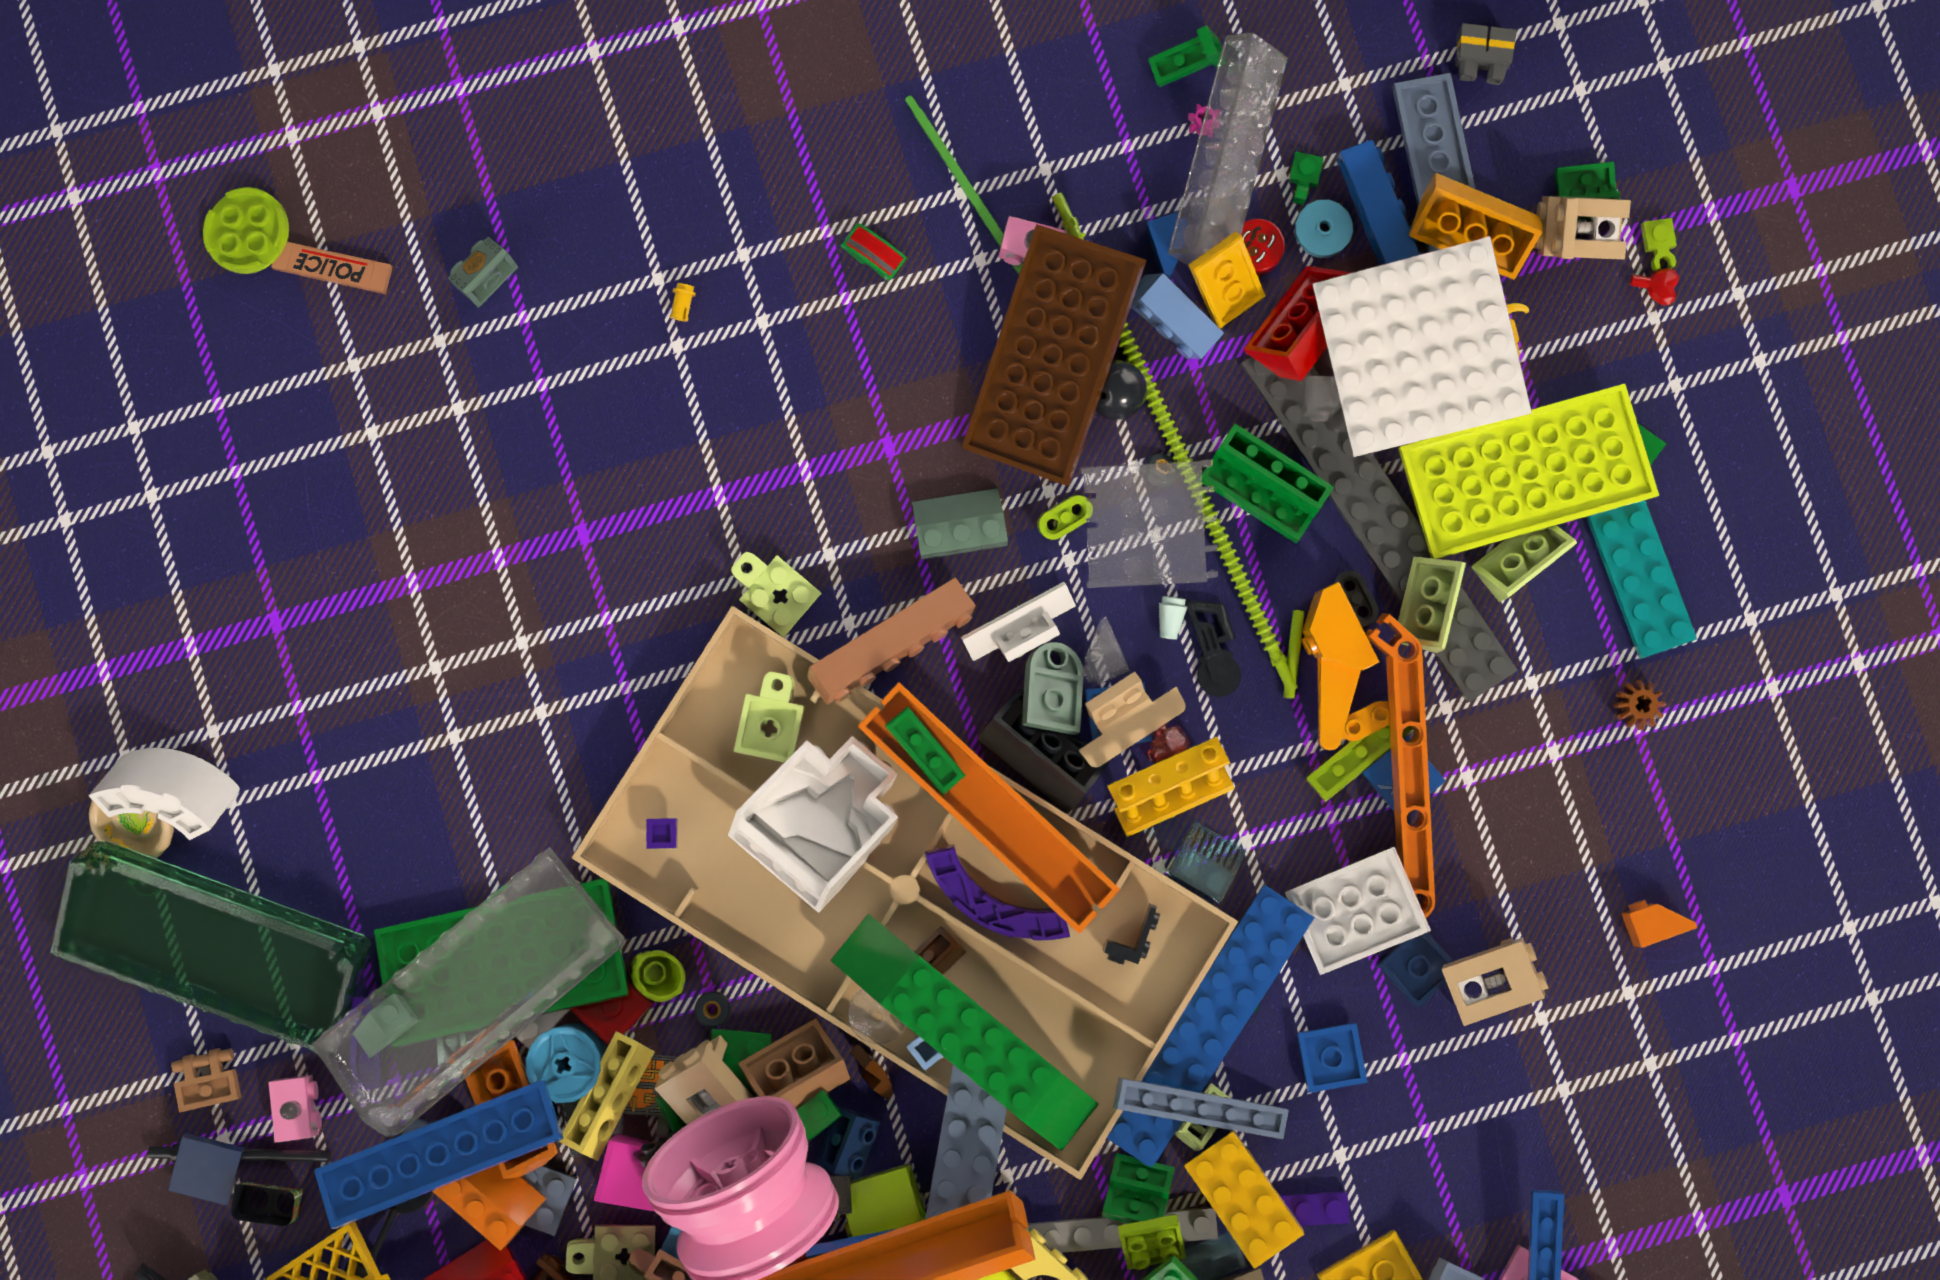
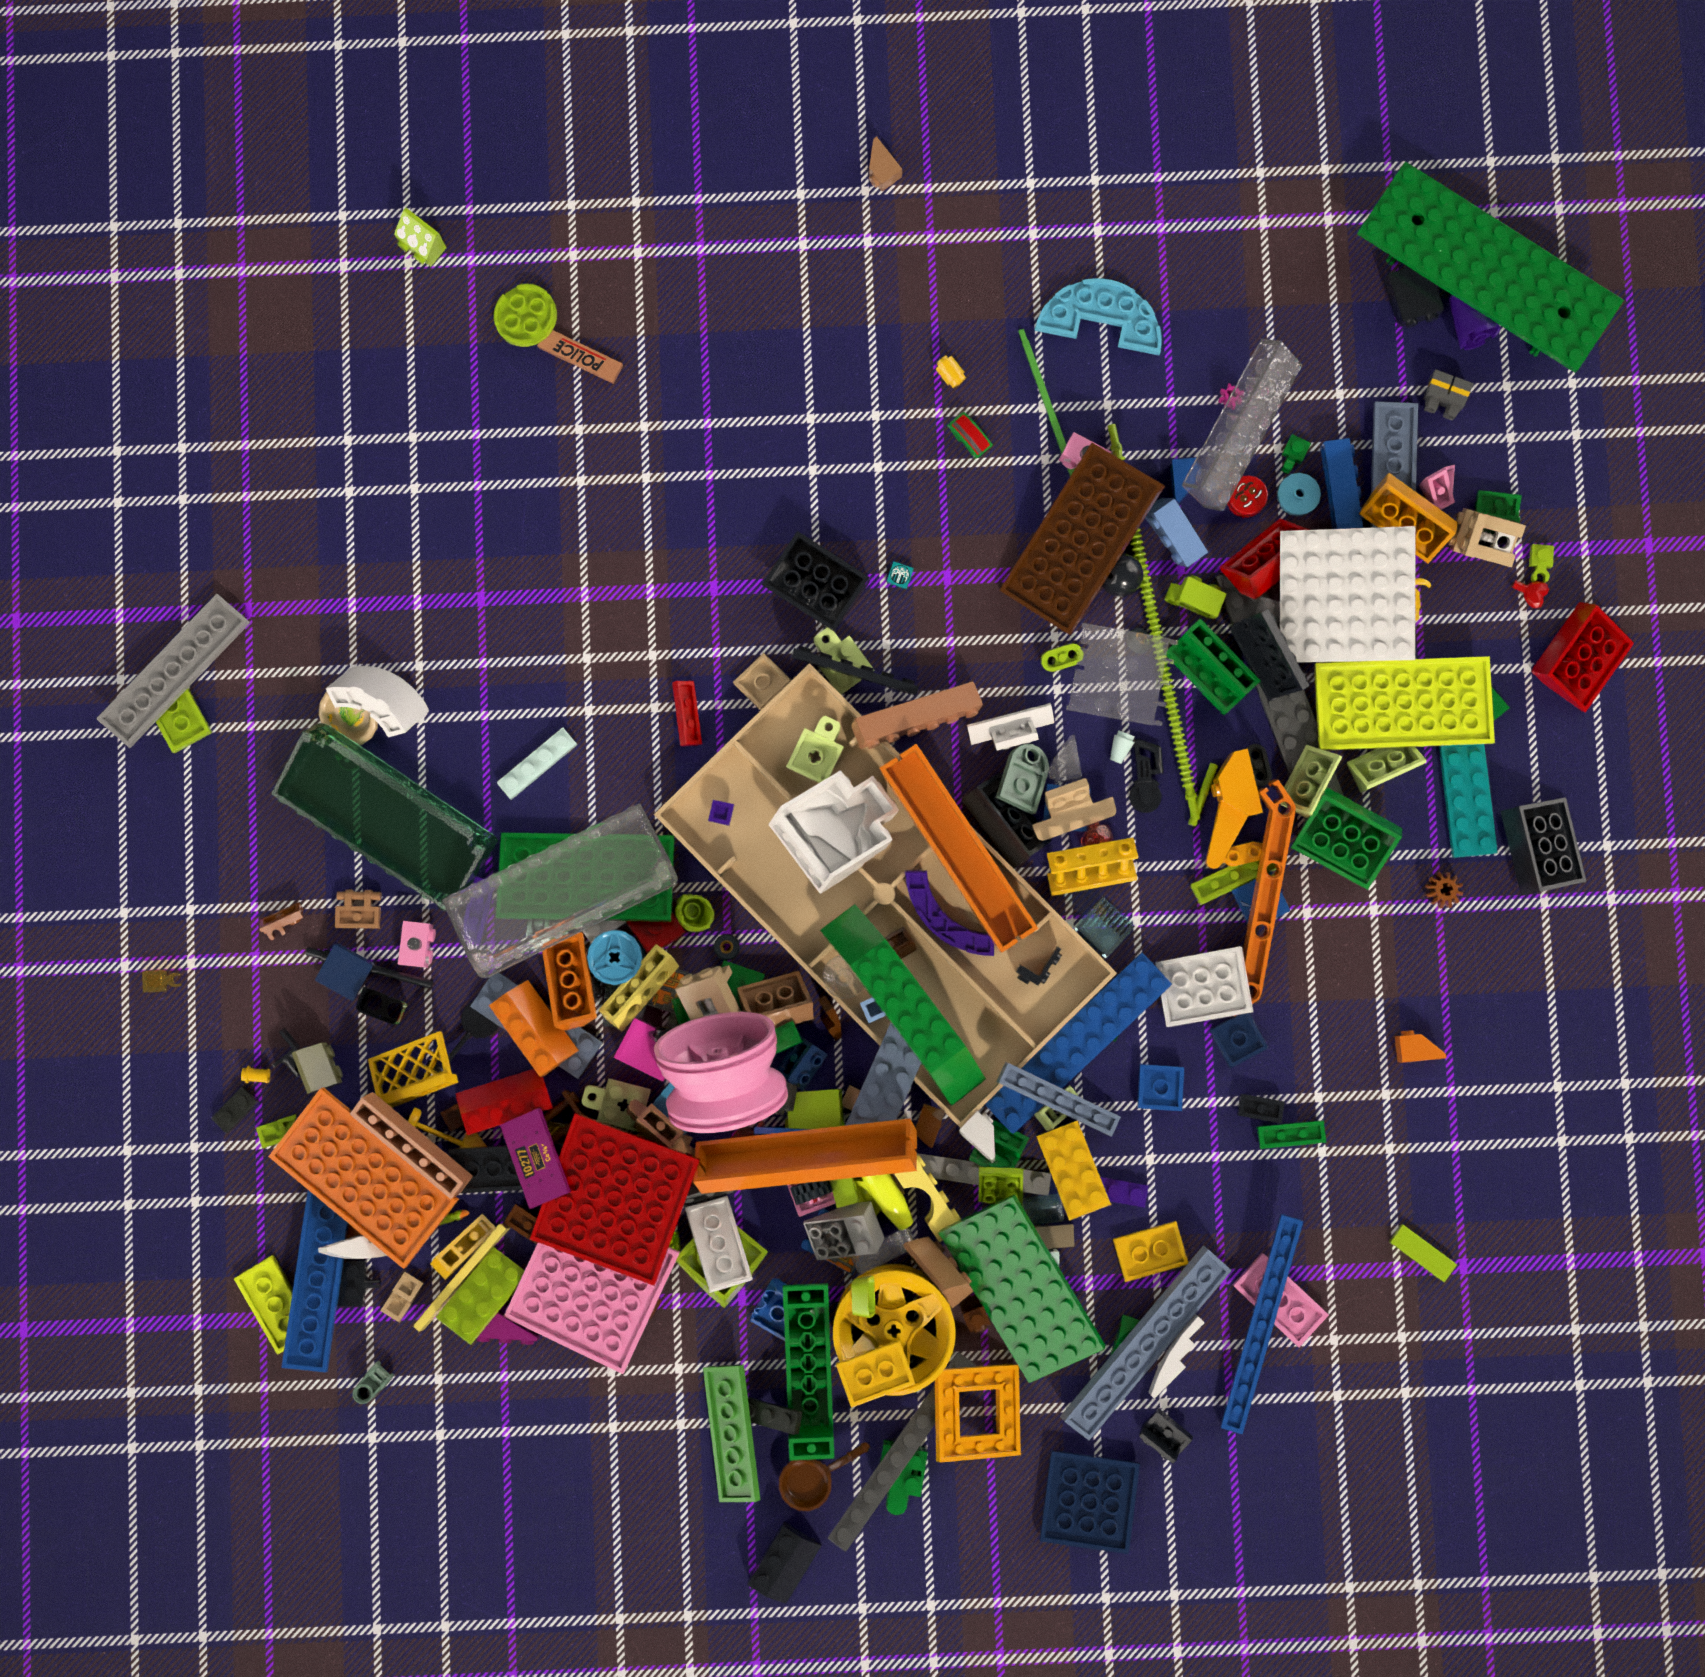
camera: 20 degrees right, 0 degrees up
(78, 161) = (418, 238): none -> lime slope
(101, 1120) = (289, 915): none -> dark orange plate
(385, 1024) = (495, 899): sand green slope -> none
(401, 825) = (537, 763): none -> light aqua plate
(438, 1154) = (513, 997): blue plate -> none
(482, 271) = (687, 383): sand green slope -> none
(585, 710) = (687, 713): none -> red plate
(675, 643) = (762, 681): none -> tan plate
(682, 302) = (823, 439): yellow pin -> none
(715, 494) = (816, 581): none -> black slope
(782, 599) = (864, 673): none -> black plate
(825, 458) = (900, 575): none -> teal tile
(828, 173) = (950, 371): none -> yellow brick
(925, 750) = (923, 797): green tile -> none
(925, 1171) = (850, 1097): none -> light nougat plate
(960, 523) = (985, 644): sand green slope -> none
(1010, 37) = (1104, 303): none -> medium azure plate
(1037, 1183) = (929, 1124): none -> reddish brown slope
(1109, 1181) = (980, 1134): none -> white slope
(1187, 57) = (1229, 348): green bracket -> none
(1223, 395) = (1196, 597): none -> lime hinge
(1227, 280) = (1219, 514): yellow tile -> none
(1337, 451) = (1269, 655): none -> black bracket
(1470, 1053) = (1260, 1108): none -> black plate
(1498, 668) = (1347, 838): none -> green slope
(1504, 176) = (1439, 487): none -> bright pink slope
(1518, 1077) = (1291, 1134): none -> green plate
(1524, 981) = (1310, 1059): tan brick -> none
(1728, 1192) = (1423, 1253): none -> lime tile
(1744, 353) = (1583, 655): none -> red slope
(1754, 616) = (1543, 846): none -> black slope

